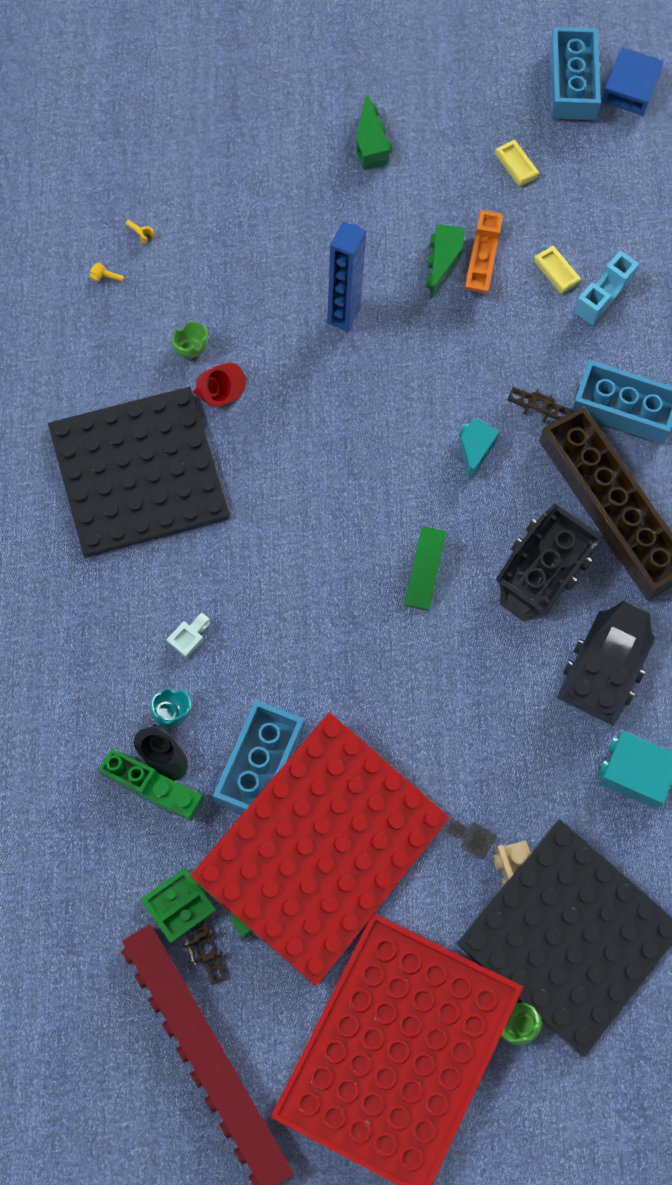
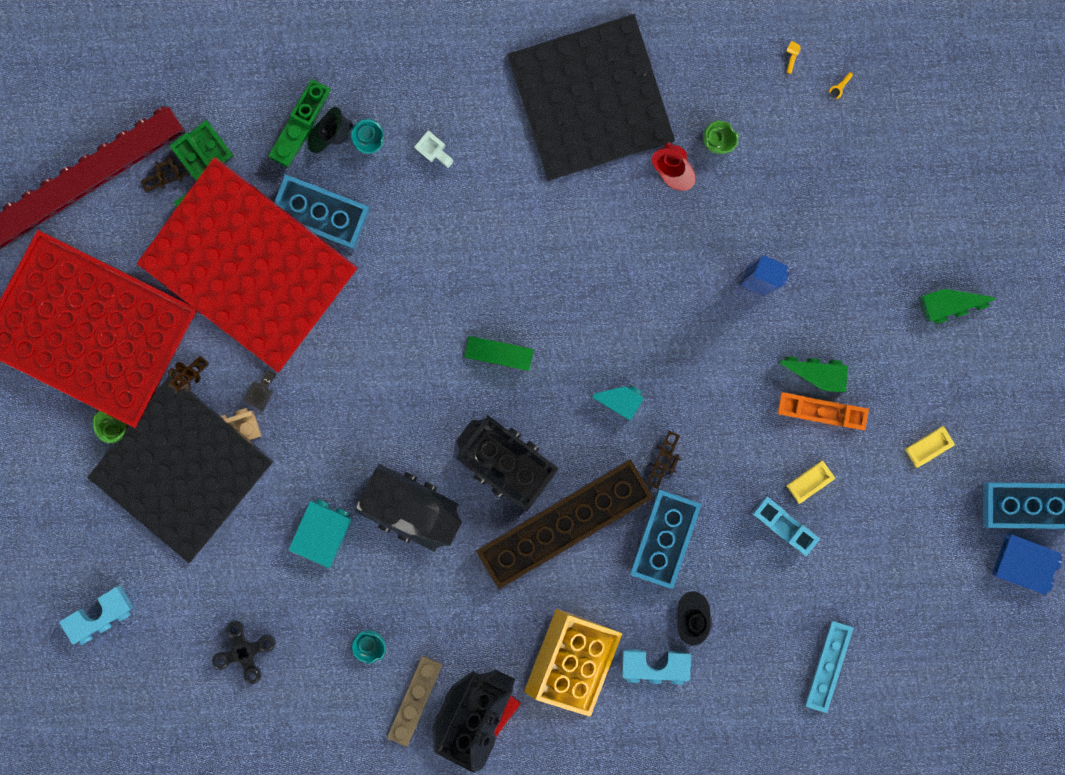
camera: 95 degrees right, 20 degrees up
(451, 928) = (187, 372): none -> dark brown piece

